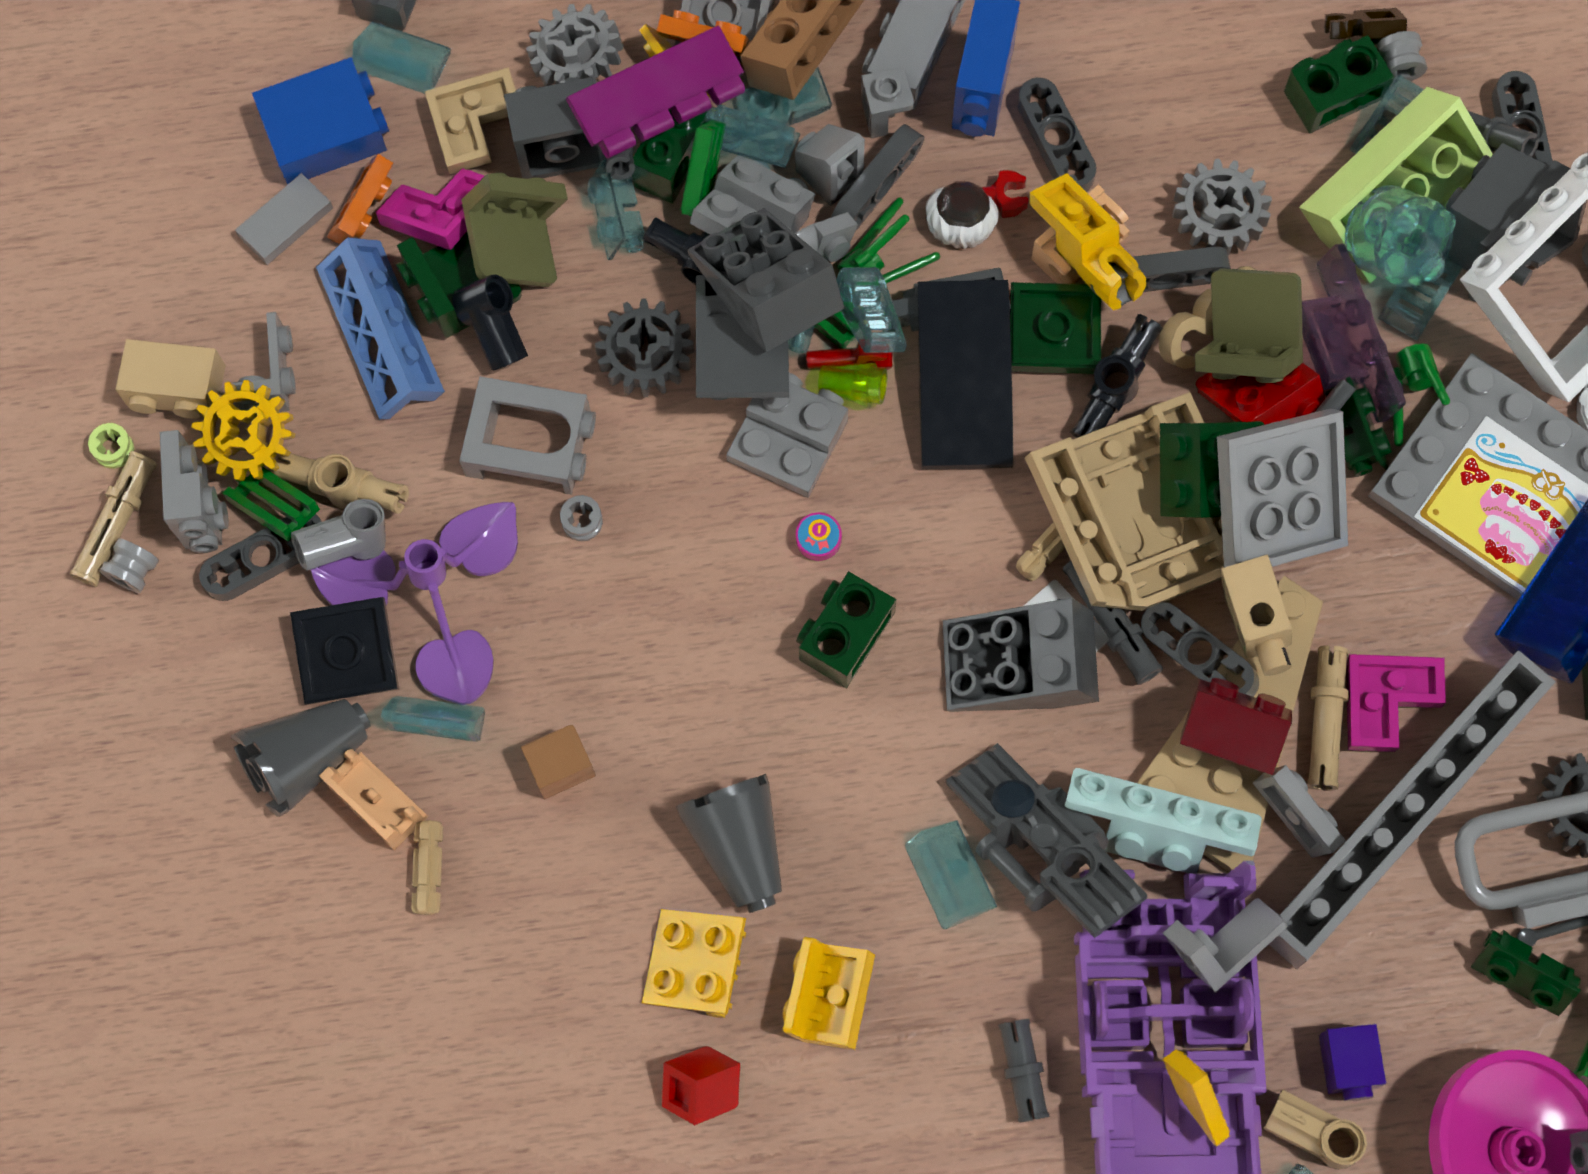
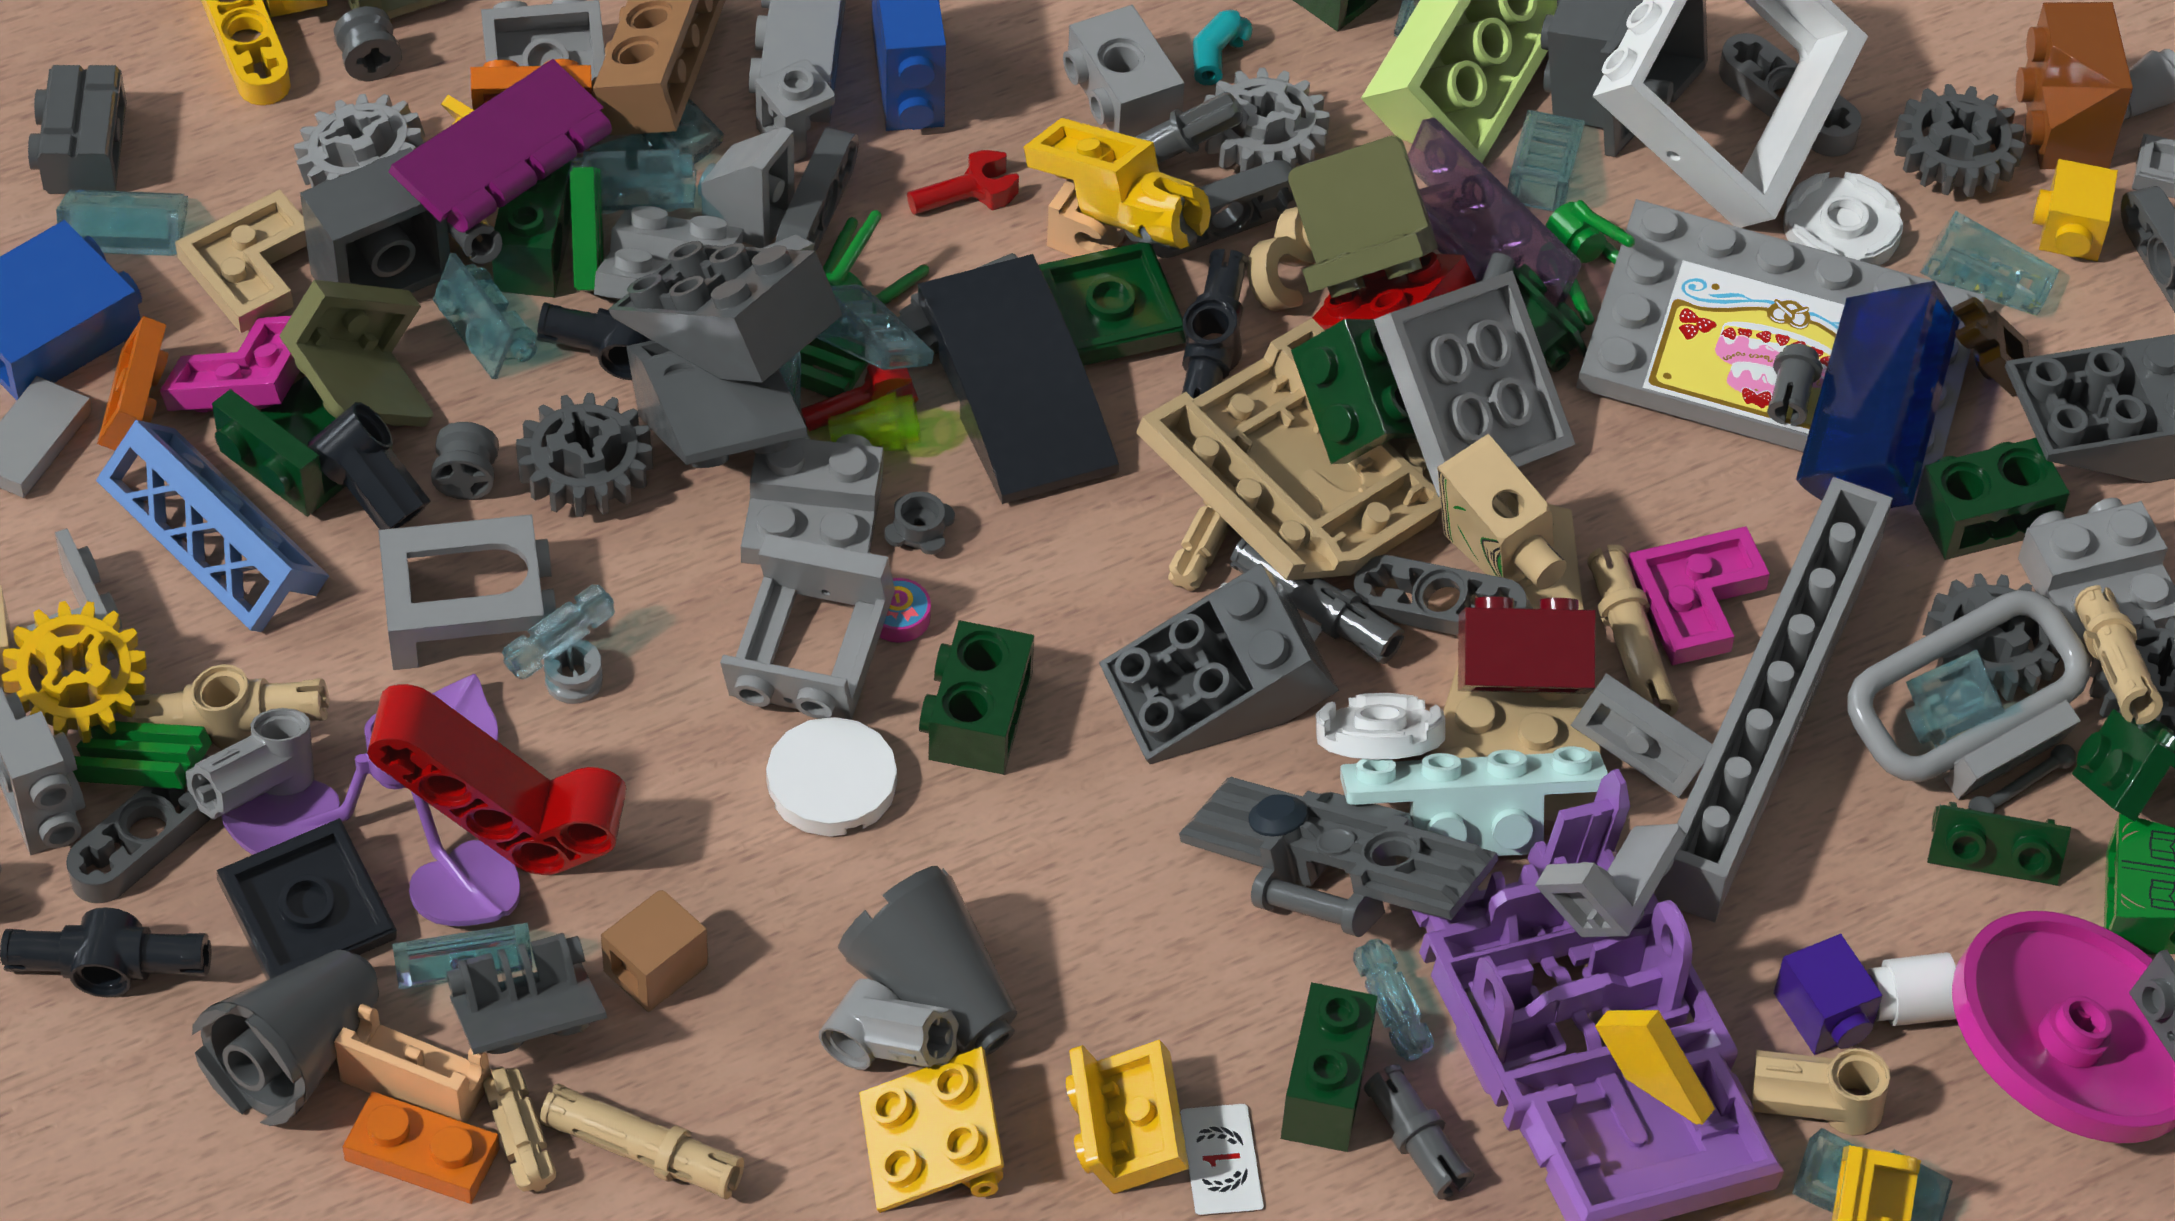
camera: 25 degrees left, 20 degrees down
(204, 647) = (105, 952): none -> black pin
(361, 858) = (421, 1147): none -> orange plate
(458, 779) = (508, 1012): none -> dark grey hinge
(481, 615) = (492, 791): none -> red beam
(516, 919) = (665, 1150): none -> tan pin
(562, 328) = (465, 460): none -> dark grey wheel
(575, 492) = (558, 631): none -> clear light blue axle
(686, 872) = (879, 1025): none -> light grey piece
(726, 656) = (831, 776): none -> white tile
(745, 490) = (822, 573): none -> light grey panel
(857, 458) = (920, 509): none -> dark grey plate
(885, 1040) = (1221, 1159): none -> white sticker
(950, 874) = (1226, 943): clear light blue slope -> none
(961, 214) = (939, 212): hair -> none
(978, 1003) = (1329, 1067): none -> dark green brick
(1046, 959) = (1395, 1000): none -> clear light blue axle
(1057, 117) = (1014, 82): dark grey beam -> none
(1114, 745) = (1380, 727): none -> white tile
(1141, 111) = (1123, 72): none -> light grey brick
(1160, 200) = (1190, 128): none -> dark grey axle
(1223, 113) = (1208, 44): none -> teal arm
(1400, 236) = (1499, 87): clear light blue brick -> none
(1416, 1074) = (1915, 989): none -> white brick
(1525, 551) = (1796, 372): none -> dark grey pin
(1536, 856) = (1952, 699): none -> clear light blue bracket

